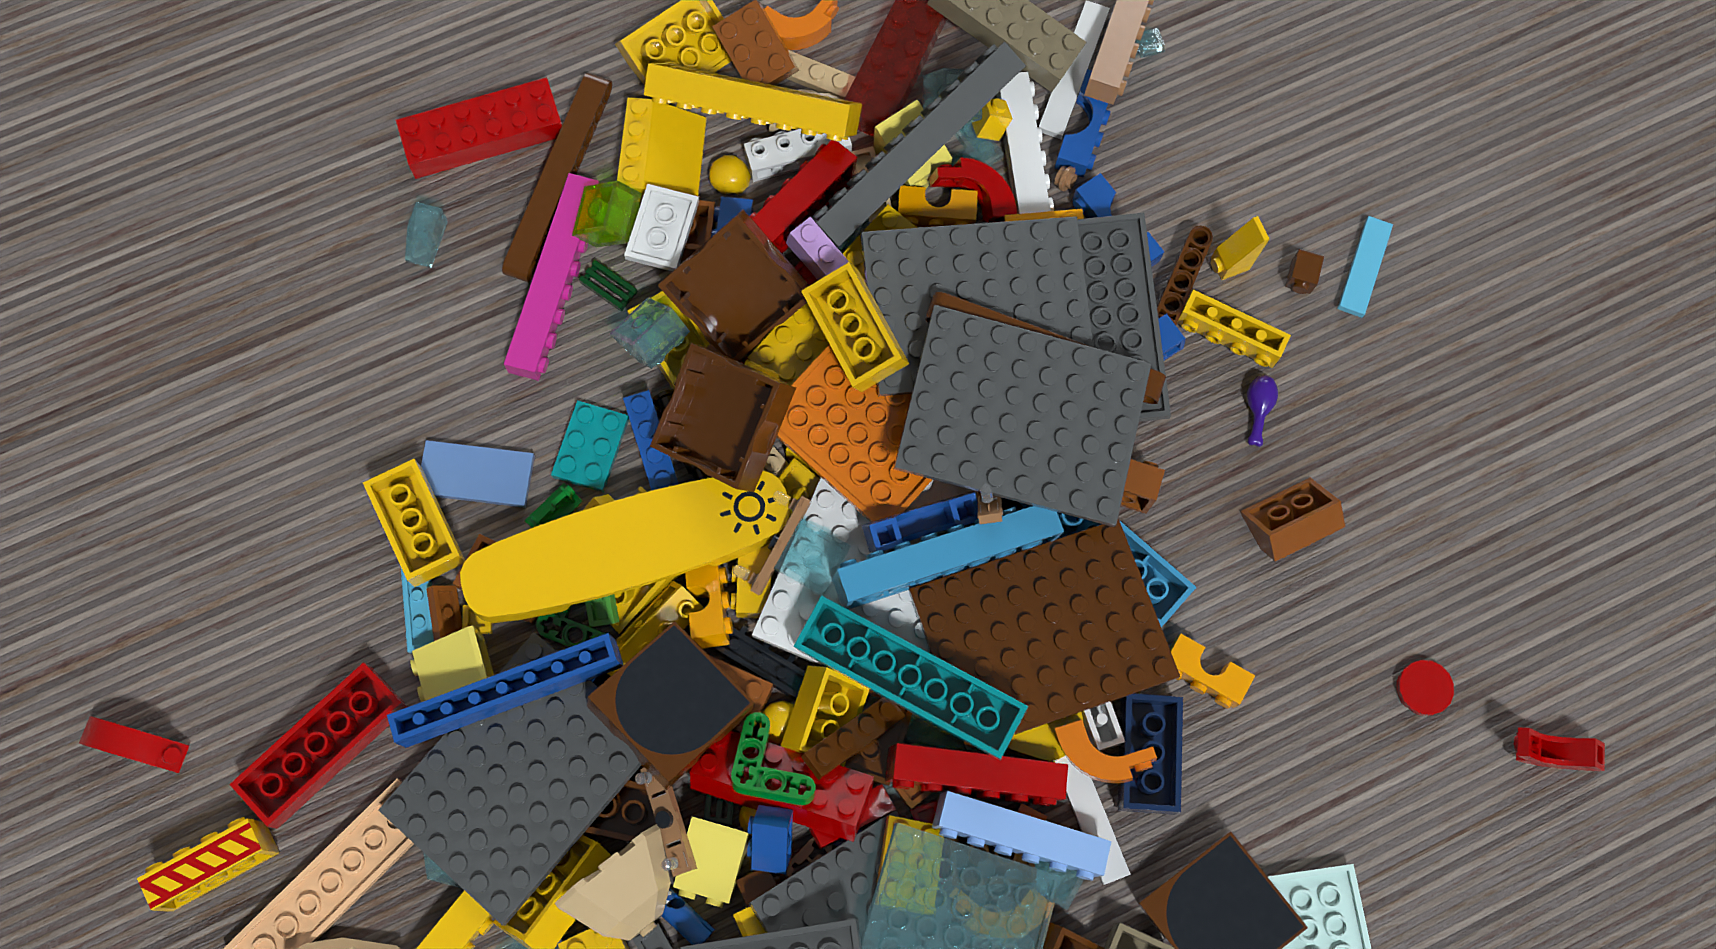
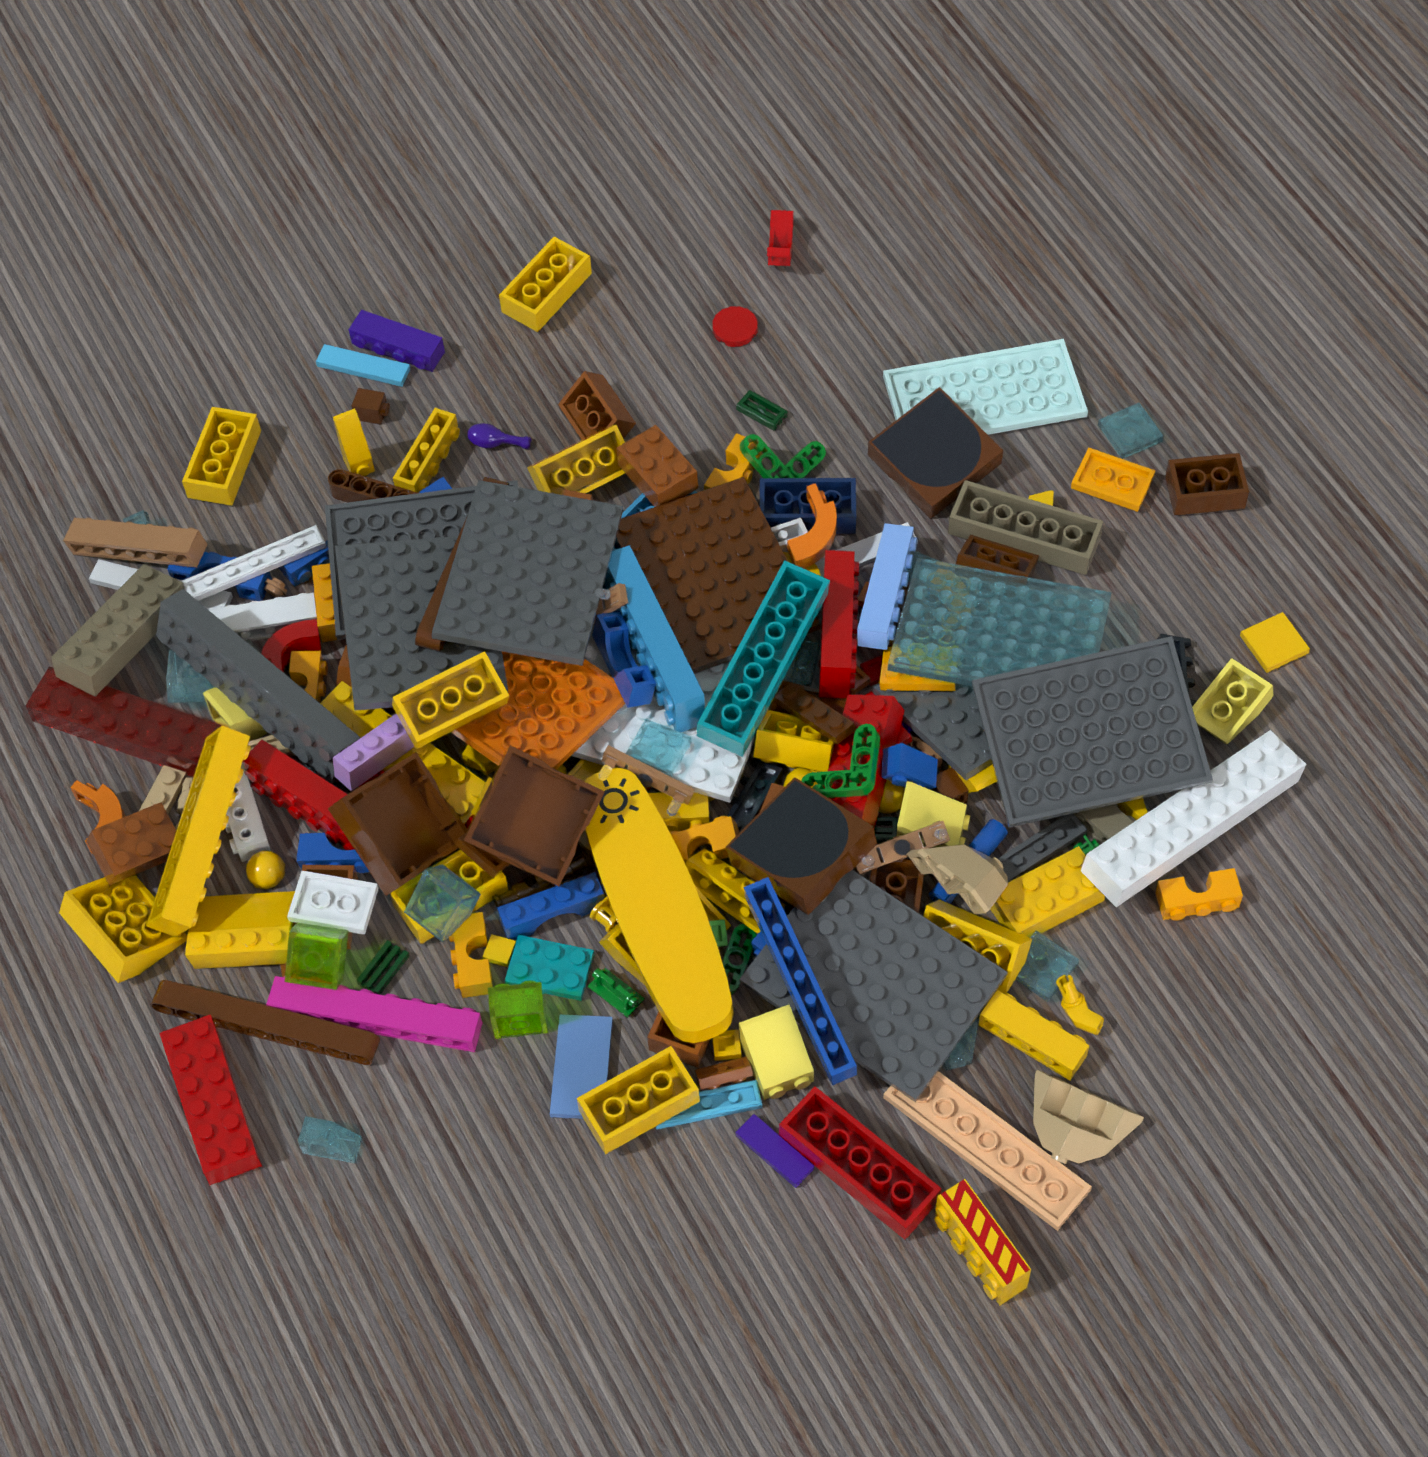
camera: 85 degrees left, 15 degrees down
(134, 744) = (872, 1342): red arch -> none
(369, 649) = (774, 1150): none -> dark purple tile
(533, 409) = (517, 1009): none -> clear neon green brick
(587, 365) = (473, 975): none -> light orange arch
(613, 395) = (499, 950): none -> yellow tile
(1086, 150) = (254, 563): none -> white tile
(1192, 575) = (657, 467): none -> dark orange brick
(1206, 733) = (786, 470): none -> green beam
(1208, 496) = (580, 465): none -> yellow brick
(1235, 119) = (221, 456): none -> yellow brick
(1285, 730) = (760, 413): none -> dark green tile
(1396, 301) = (396, 340): none -> dark purple brick
(1480, 465) = (545, 284): none -> yellow brick

